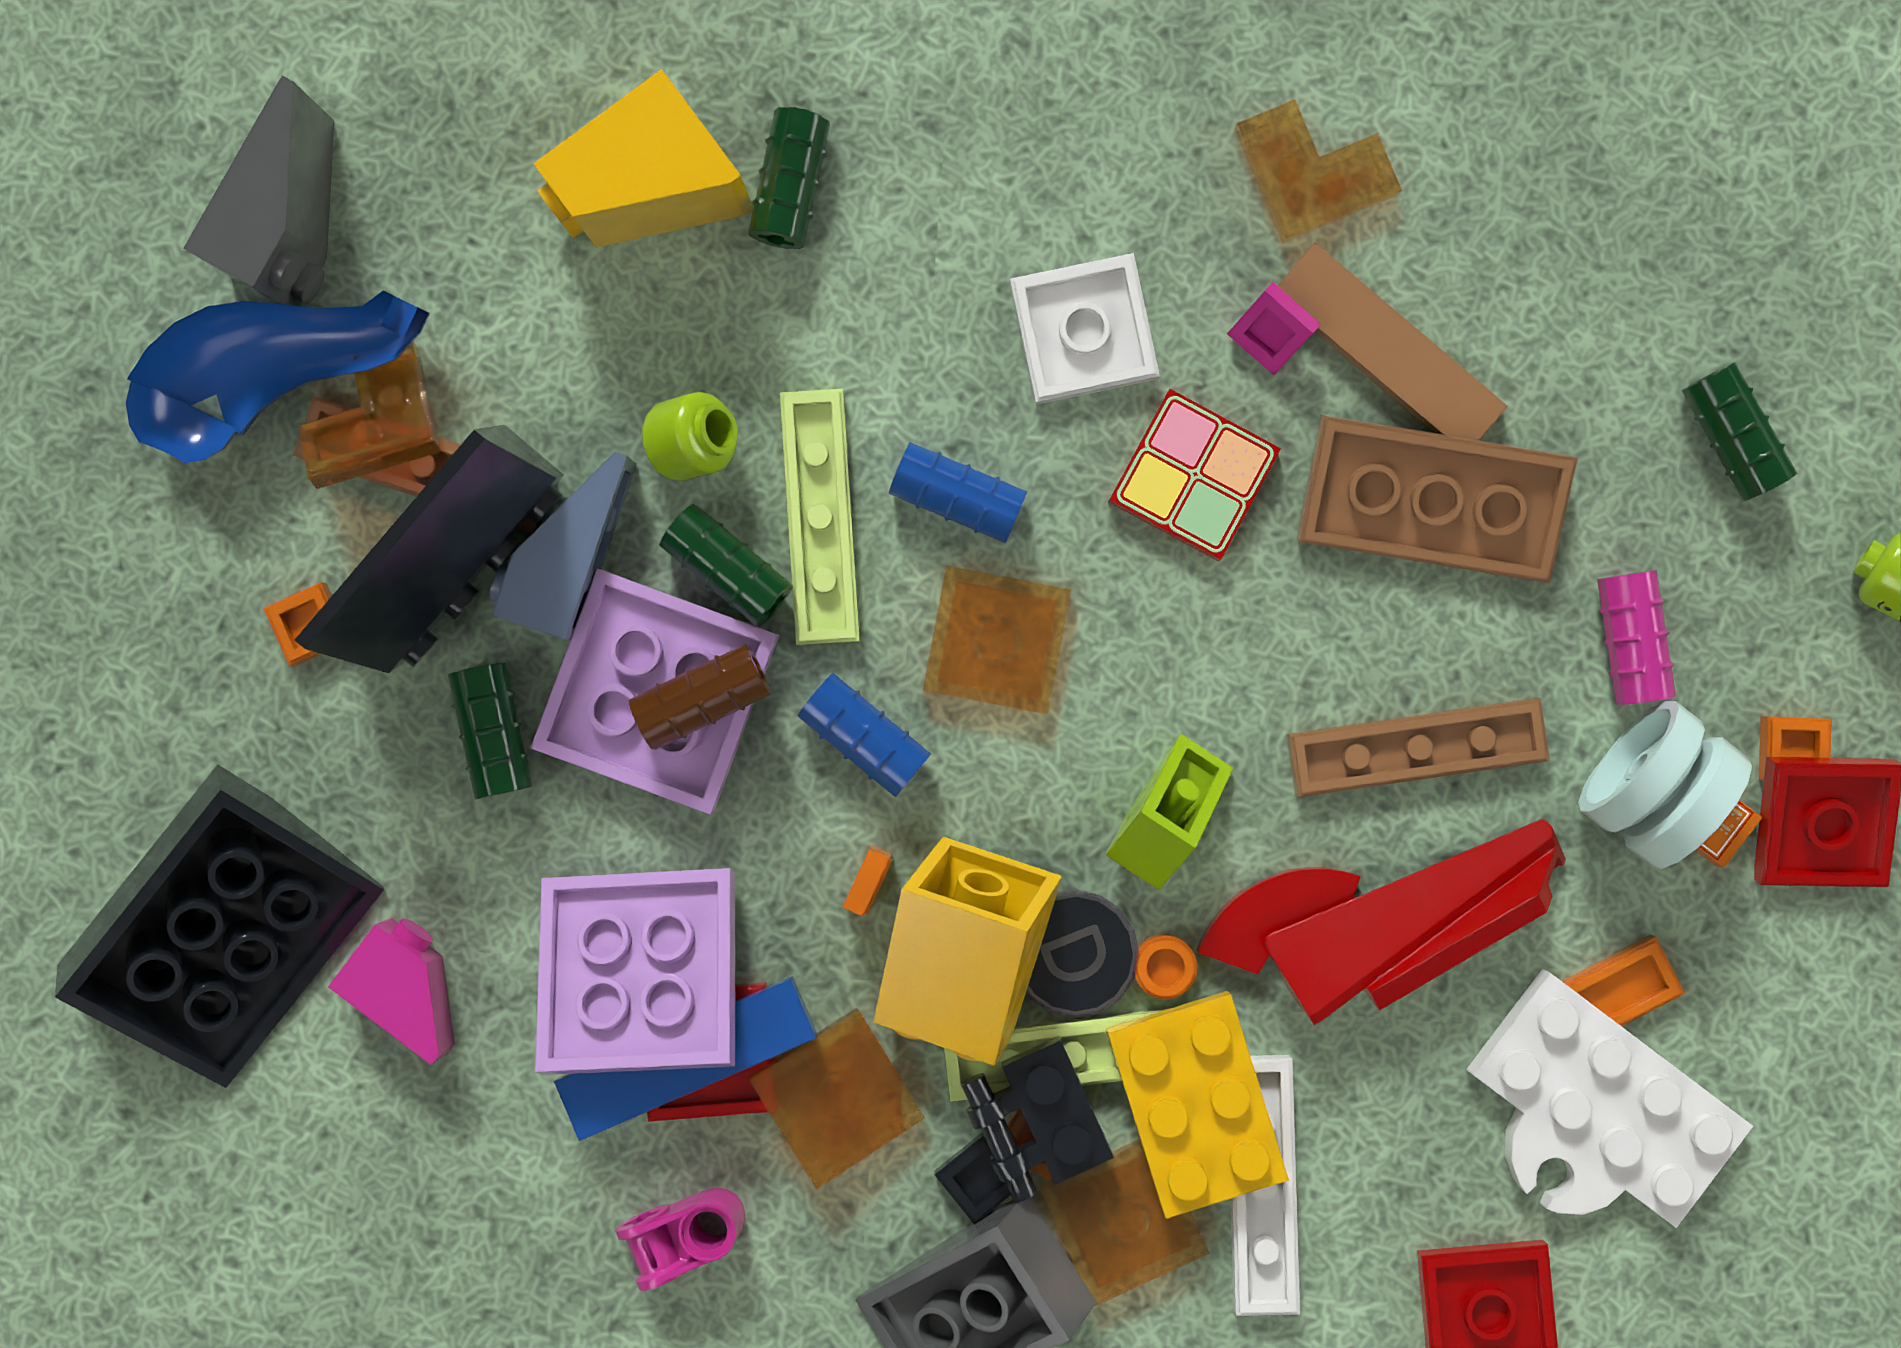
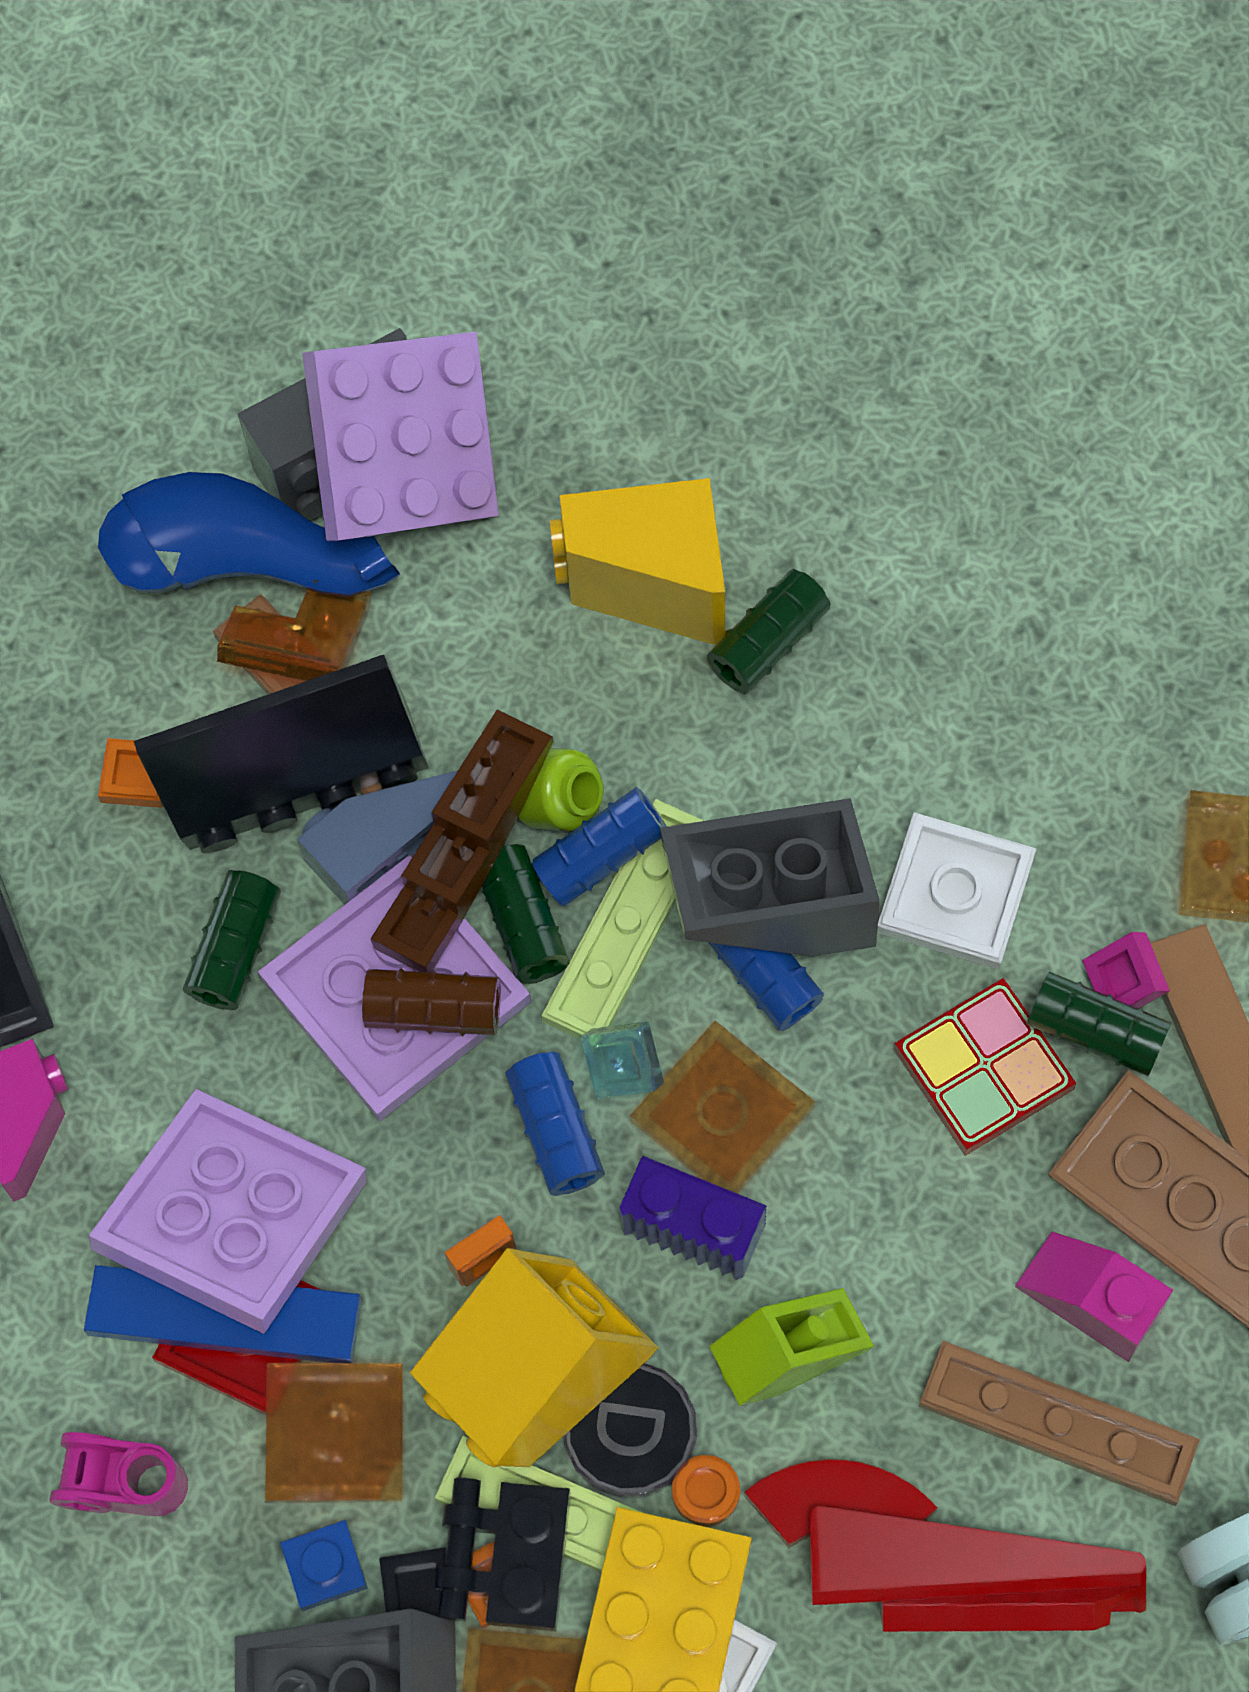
camera: 30 degrees right, 20 degrees down
(346, 180) = (400, 435): none -> lavender plate
(640, 536) = (463, 842): none -> reddish brown slope
(760, 468) = (599, 847): none -> blue axle
(890, 648) = (622, 1059): none -> clear light blue plate
(892, 1204) = (323, 1565): none -> blue plate
(932, 419) = (775, 880): none -> dark grey slope
(1029, 752) = (692, 1217): none -> dark purple brick
(1277, 387) = (1098, 1023): none -> dark green axle
(1395, 623) = (1096, 1292): none -> dark pink slope

